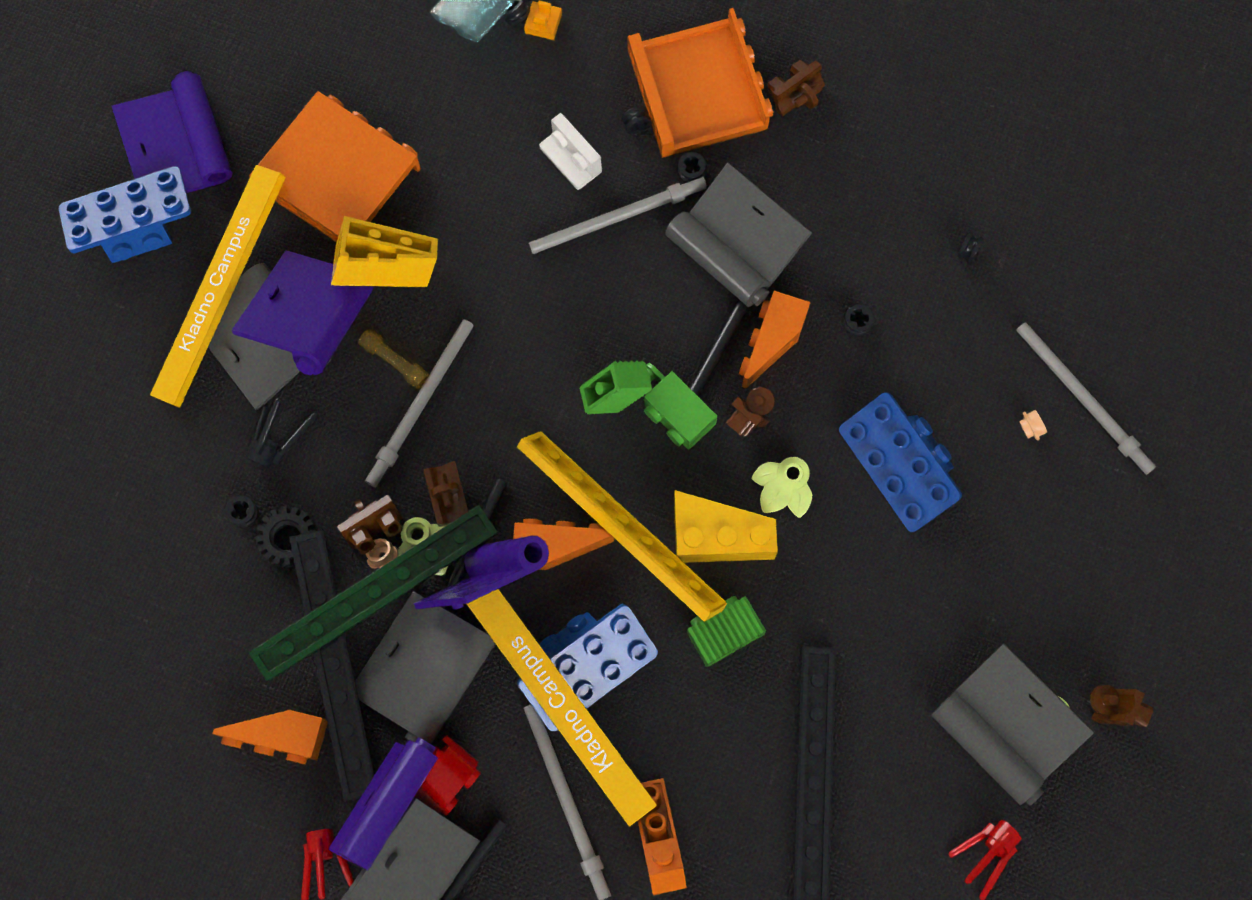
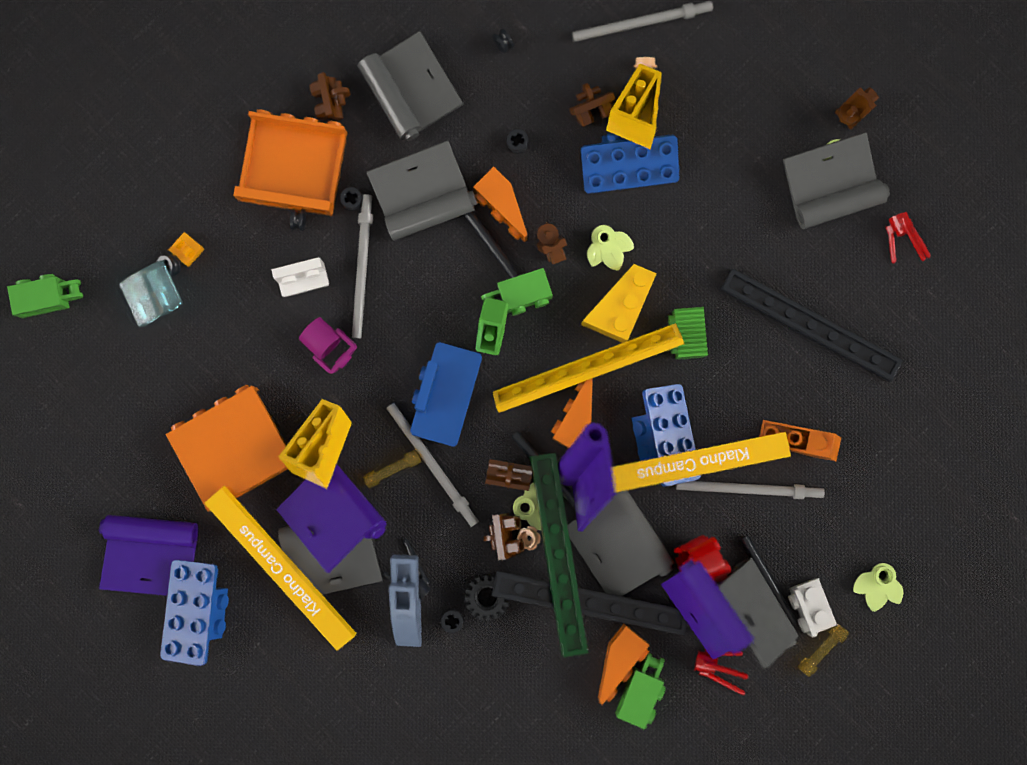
camera: 65 degrees left, 10 degrees up
(236, 437) = (405, 601): none -> sand blue slope
(247, 780) = (642, 693): none -> bright green brick
(507, 212) = (322, 340): none -> magenta piece
(510, 375) = (445, 394): none -> blue bracket
(854, 165) = (406, 89): none -> dark grey door
(935, 377) = (603, 102): none -> reddish brown hips
(971, 432) = (637, 107): none -> yellow wedge

